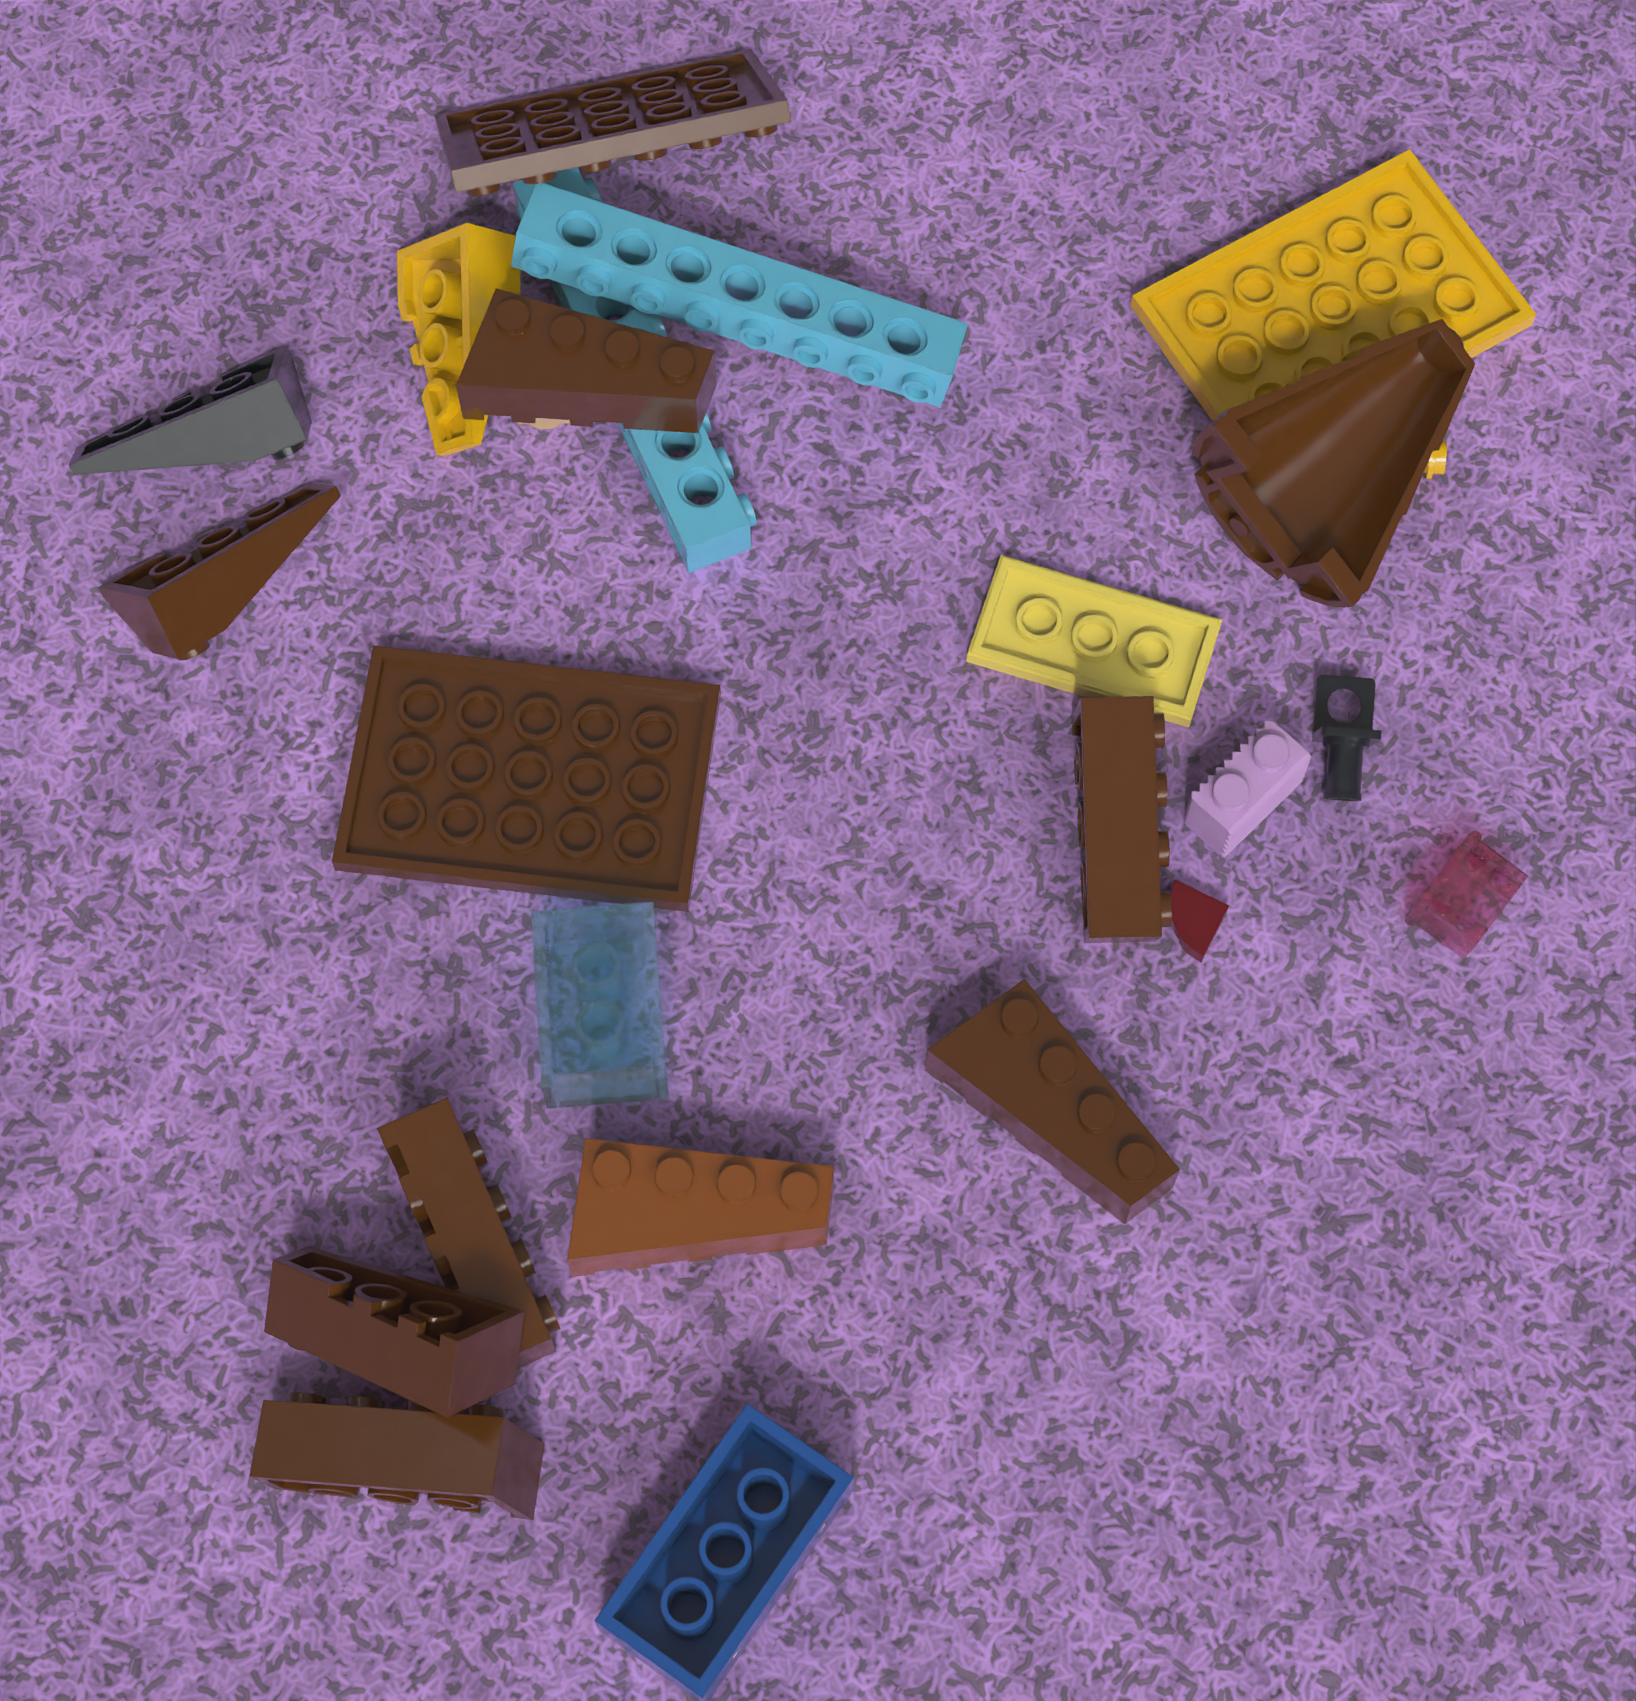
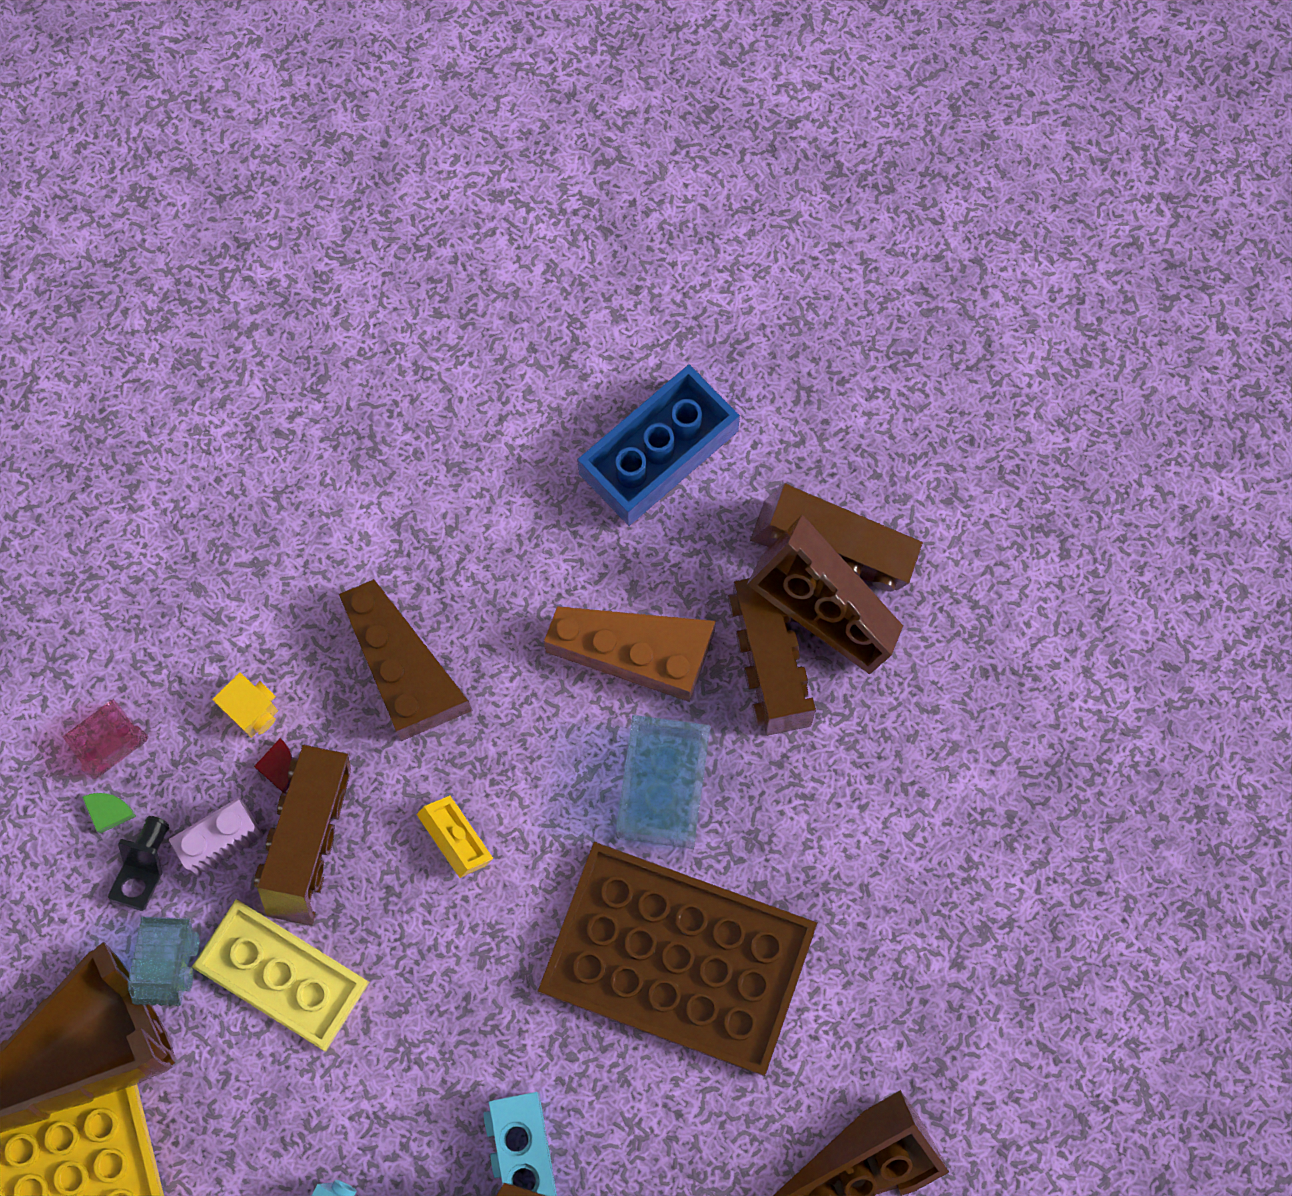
camera: 165 degrees left, 5 degrees up
(897, 869) = (454, 836): none -> yellow plate
(1260, 604) = (162, 961): none -> clear light blue brick
(1268, 988) = (248, 705): none -> yellow brick
(1423, 801) = (107, 811): none -> bright green tile

